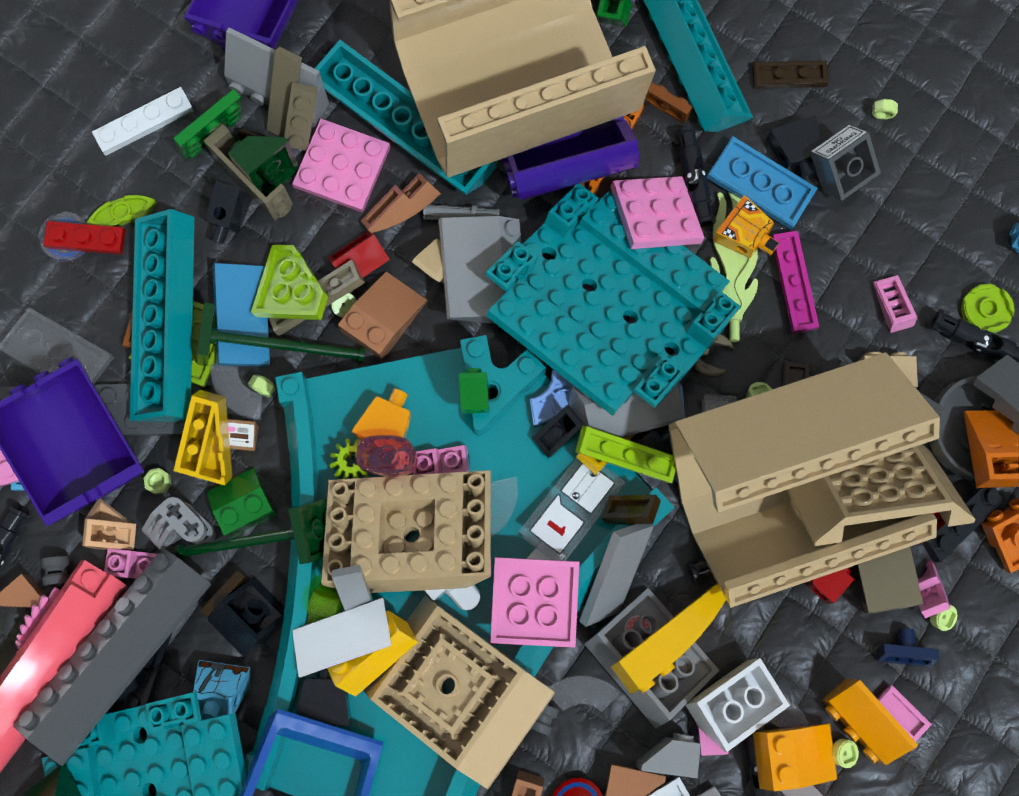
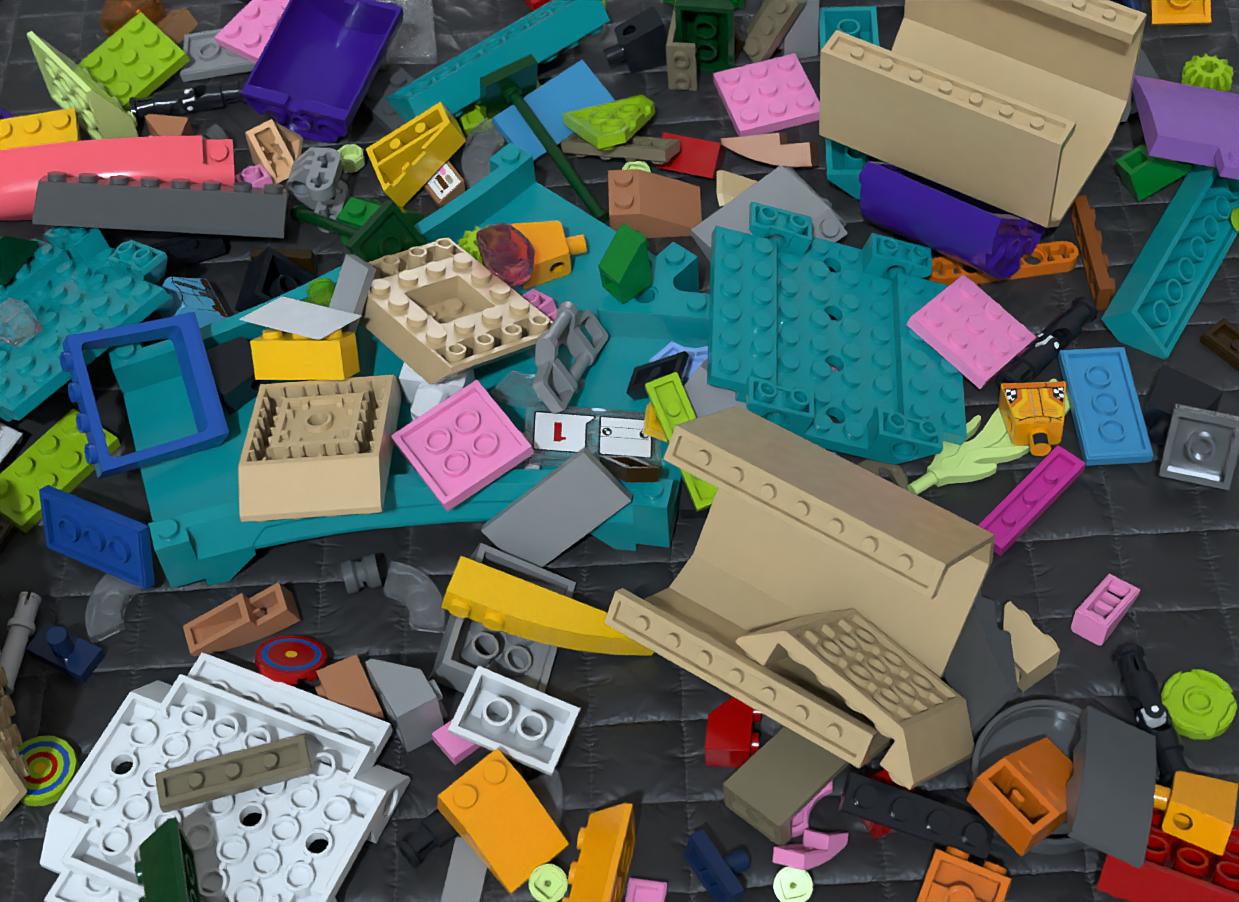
camera: 60 degrees right, 25 degrees down
(511, 495) = (551, 368): none -> light grey bar

